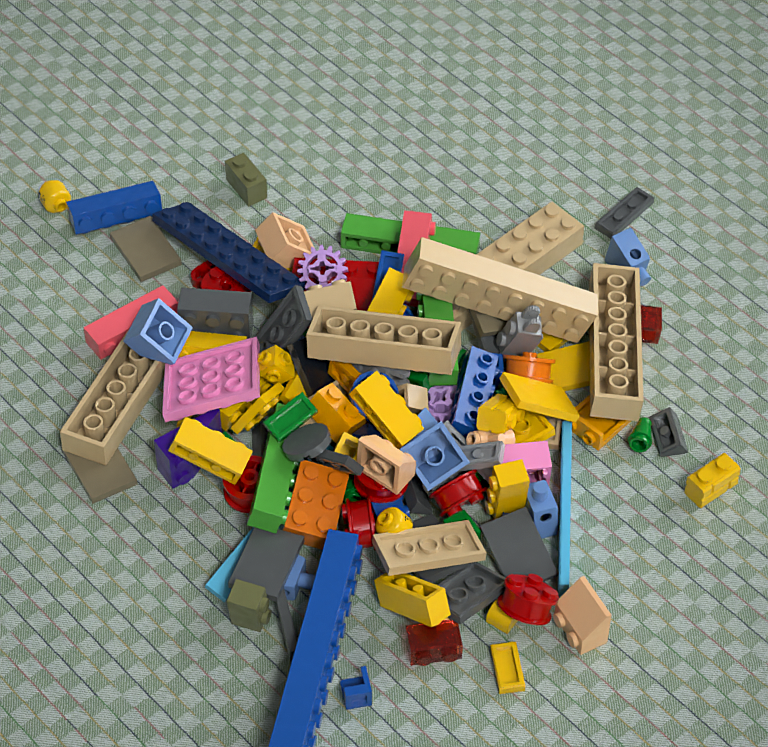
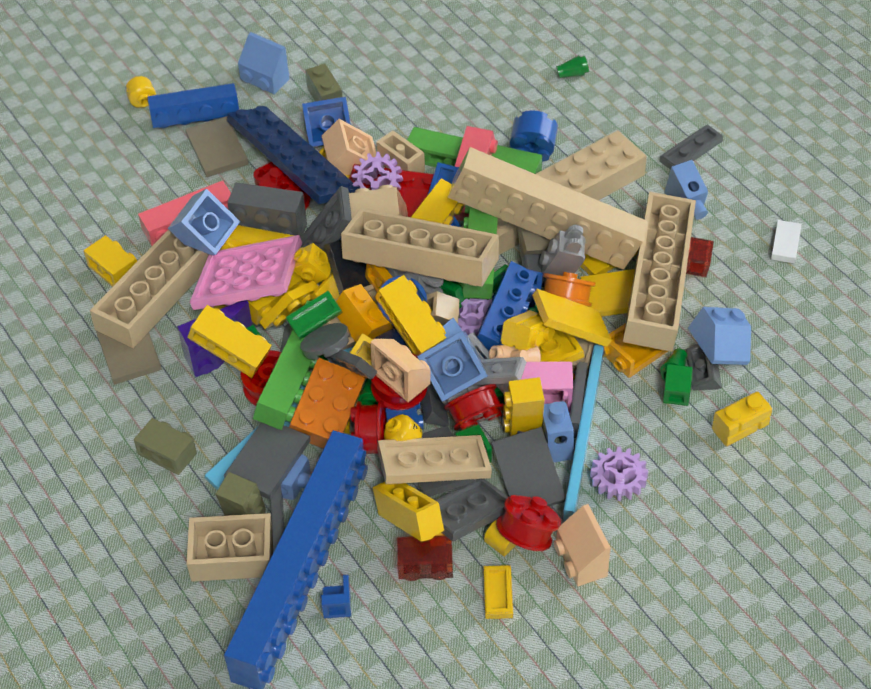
camera: 10 degrees right, 0 degrees up
(64, 379) = (109, 259): none -> yellow brick
(160, 559) = (165, 446): none -> olive brick
(179, 157) = (263, 63): none -> medium blue slope
(246, 651) = (229, 546): none -> tan brick
(251, 210) = (322, 115): none -> blue slope
(340, 239) = (406, 154): none -> tan brick
(468, 211) = (534, 133): none -> blue brick
(496, 136) = (574, 67): none -> green cone
(554, 483) = (578, 394): none -> dark grey tile
(604, 544) = (619, 473): none -> lavender gear
(647, 453) = (677, 385): none -> green panel
(684, 400) = (723, 335): none -> medium blue slope
(730, 301) = (786, 241): none -> white tile

